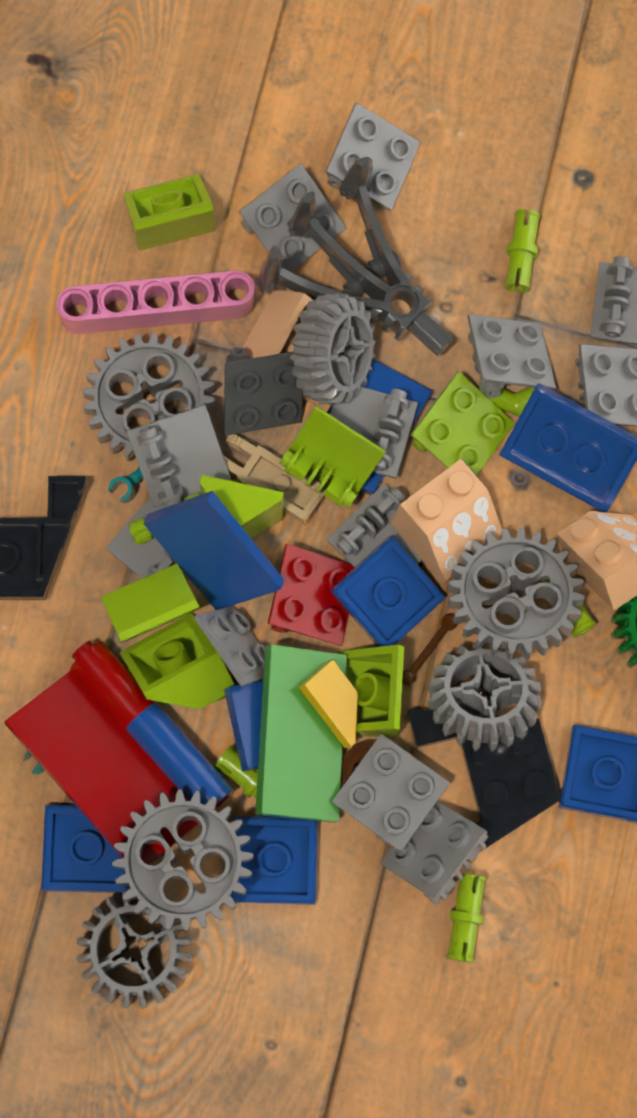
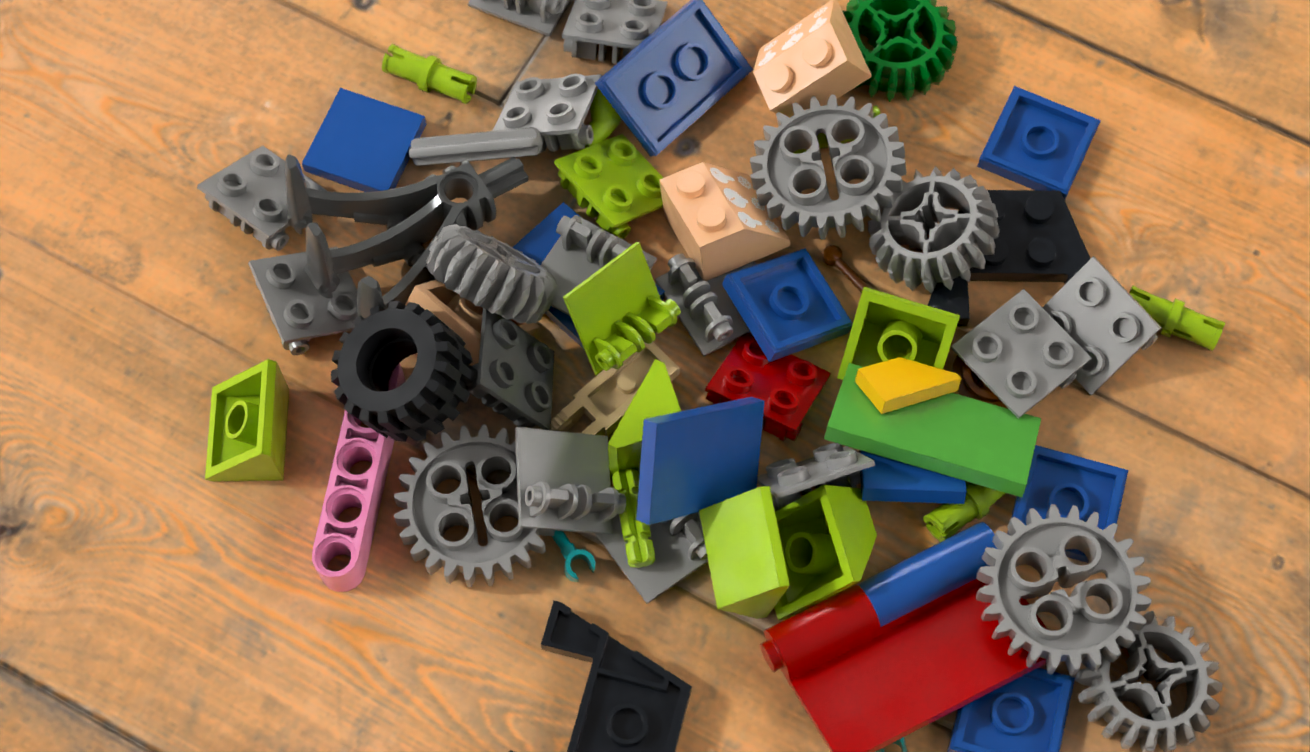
camera: 70 degrees left, 10 degrees down
(218, 278) = (374, 352): none -> black tyre
(443, 220) = (363, 142): none -> blue tile
(457, 306) = (476, 146): none -> light grey axle

